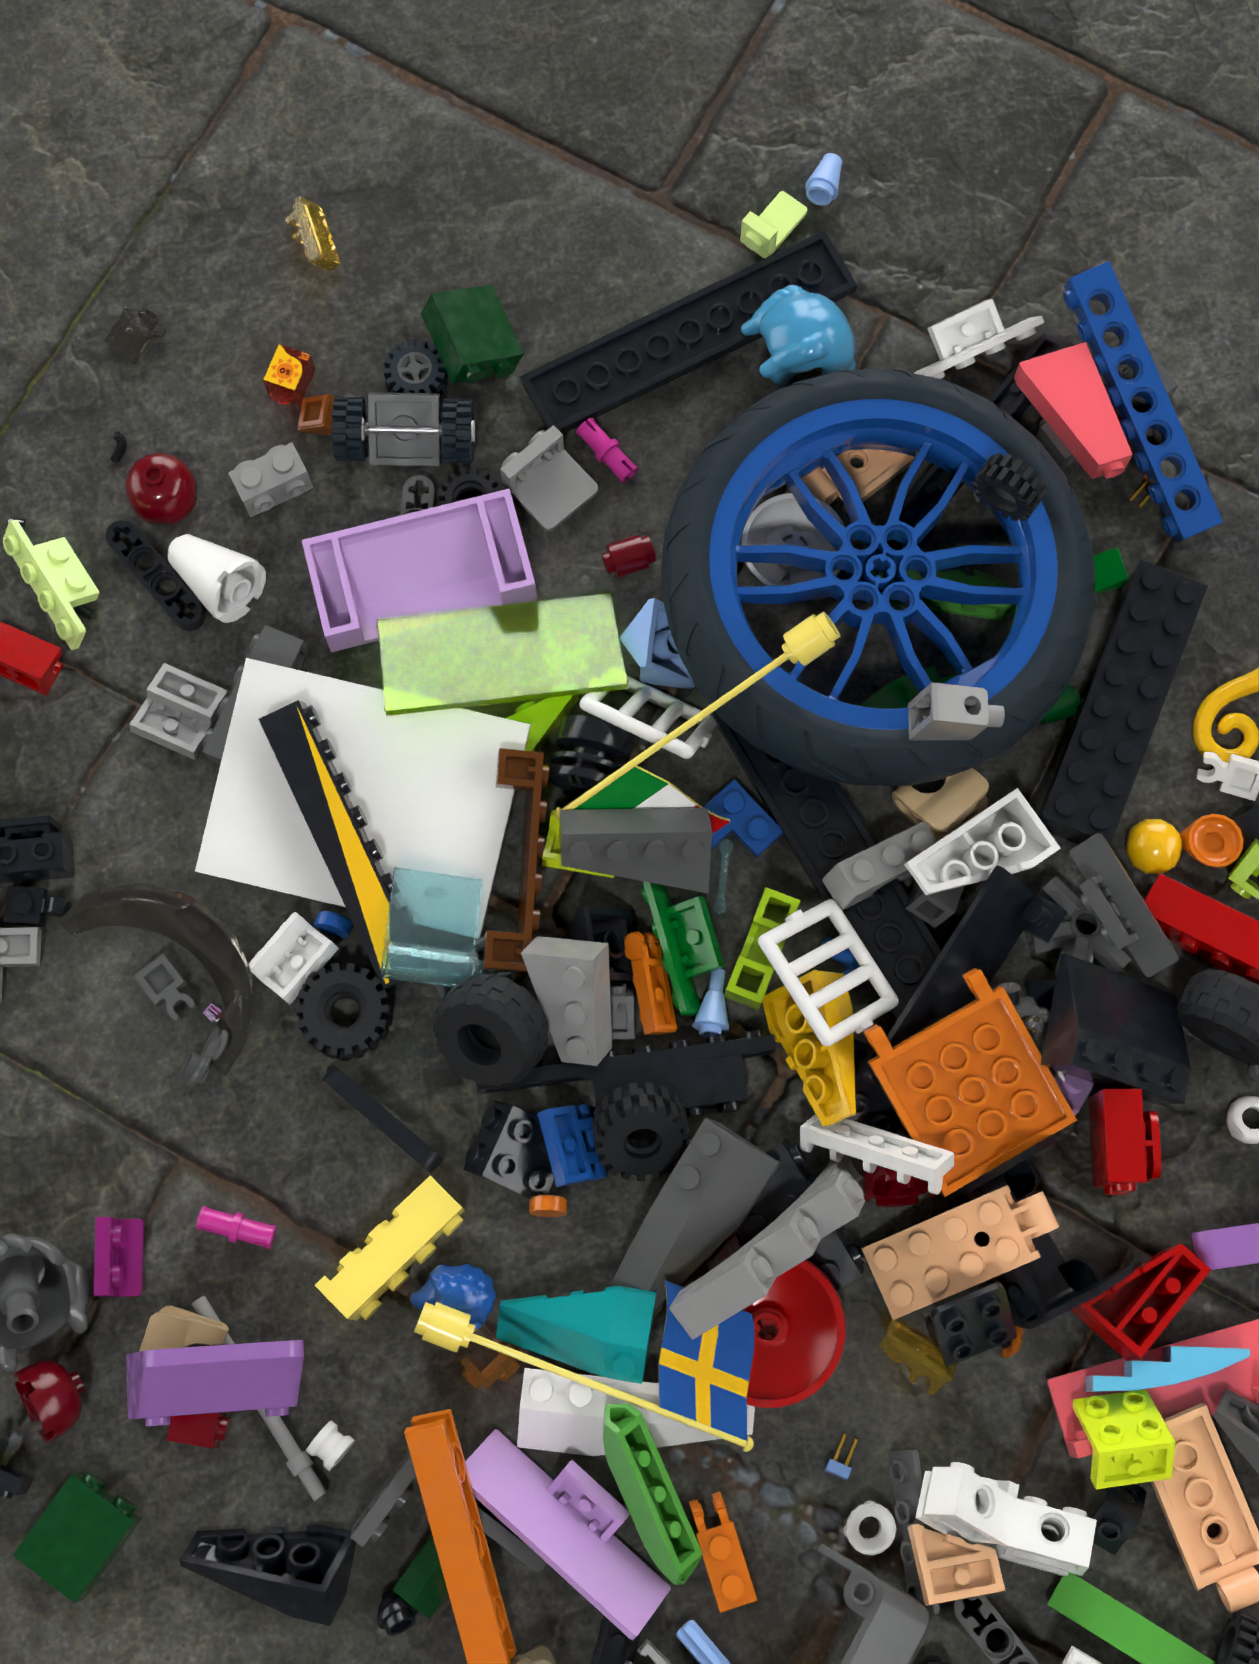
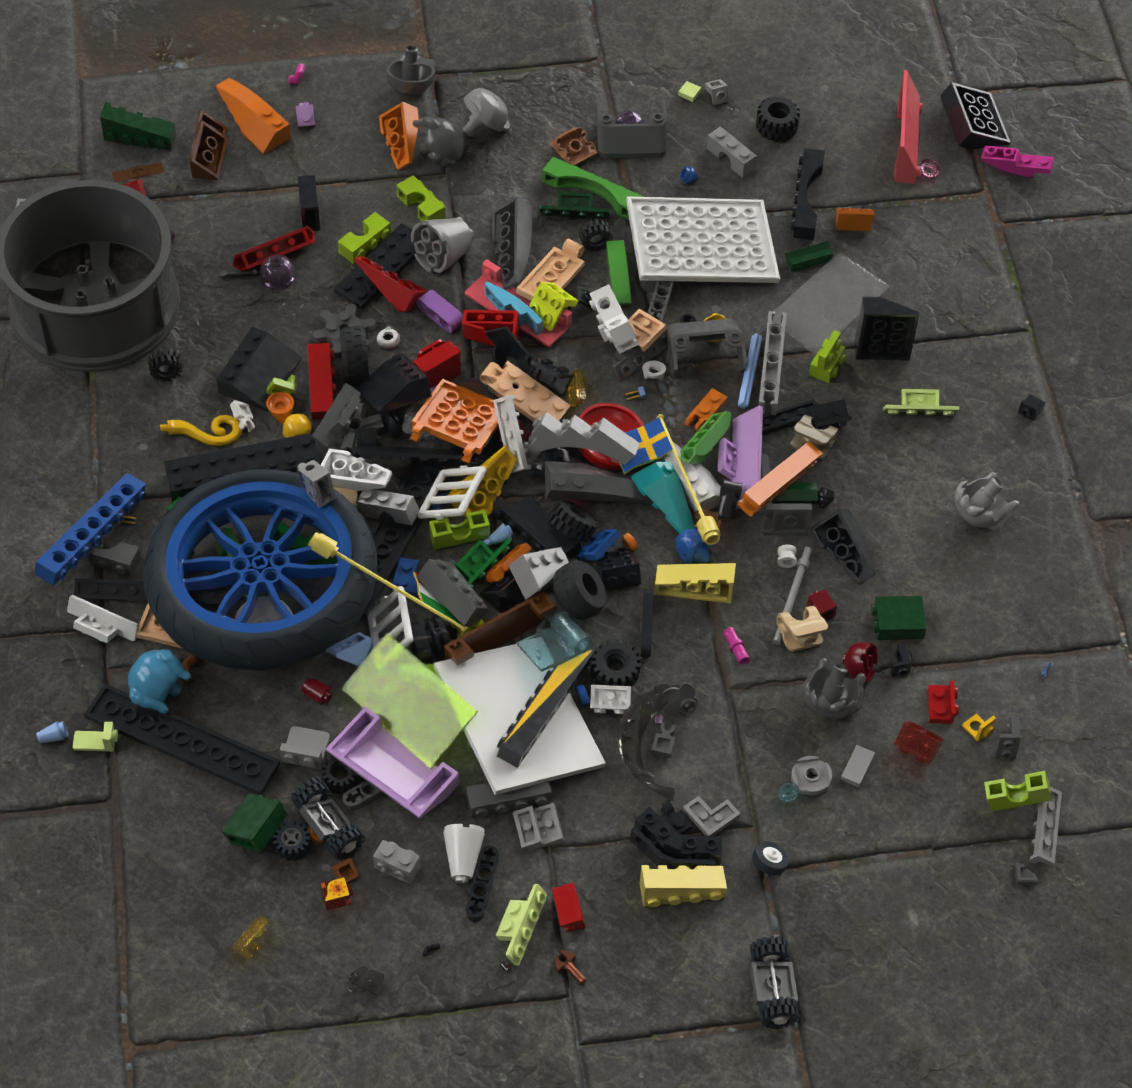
camera: 130 degrees left, 20 degrees down
(118, 1257) = (787, 677): magenta bracket -> none
(161, 488) = (437, 911): dark red cylinder -> none
(214, 1380) = (784, 577): medium lavender windscreen -> none
(506, 1437) = (730, 494): none -> black piece
(607, 450) = (270, 734): dark pink pin -> none
(1009, 487) = (193, 517): black tyre -> none
(1077, 408) = (112, 550): coral slope -> none

